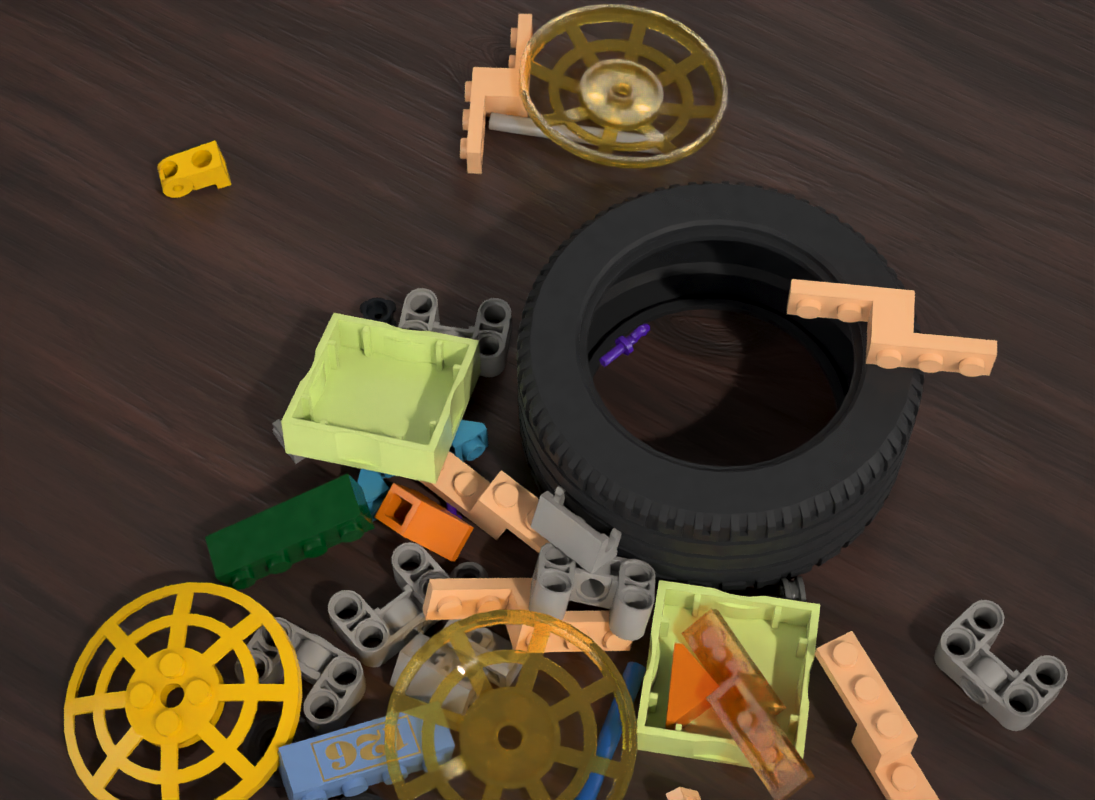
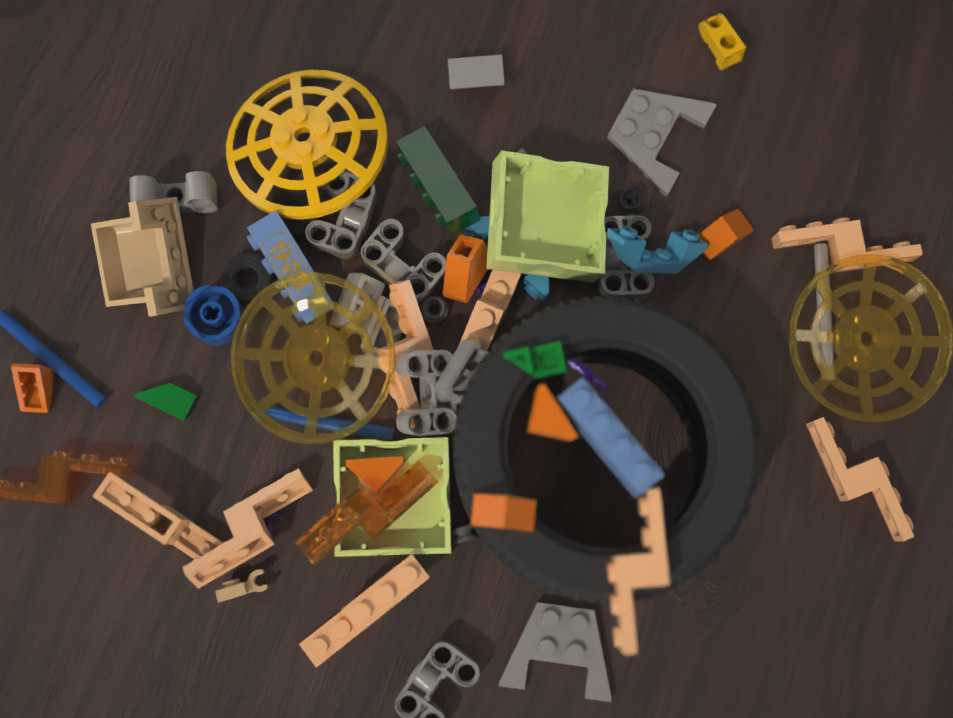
camera: 75 degrees right, 20 degrees up
(144, 465) = (475, 72): none -> light grey hinge
(283, 281) = (645, 126): none -> light grey wing
(451, 221) = (725, 233): none -> orange slope
(464, 289) = (678, 253): none -> dark azure slope
(594, 394) = (540, 360): none -> green slope
(672, 394) = (547, 417): none -> orange slope
(714, 330) = (609, 438): none -> medium blue brick
(790, 476) = (503, 512): none -> orange slope
(792, 135) = (861, 479): none -> light nougat bracket
(947, 503) = (562, 637): none -> light grey wing

